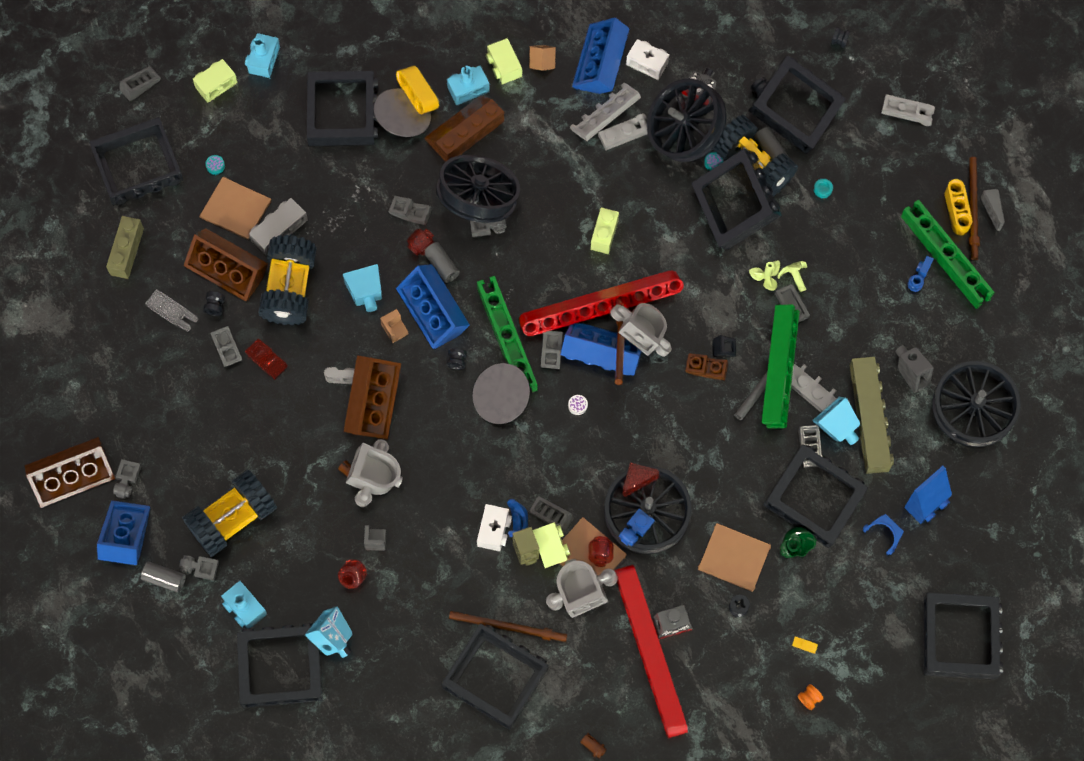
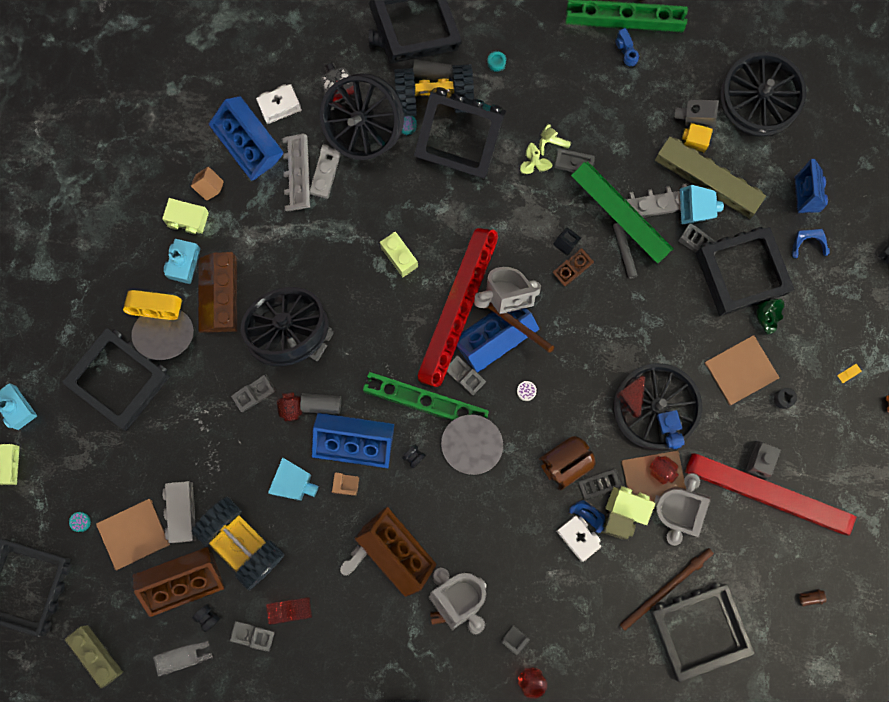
camera: 50 degrees left, 10 degrees up
(542, 481) = (568, 461): none -> reddish brown cylinder
(894, 381) = (697, 137): none -> yellow brick

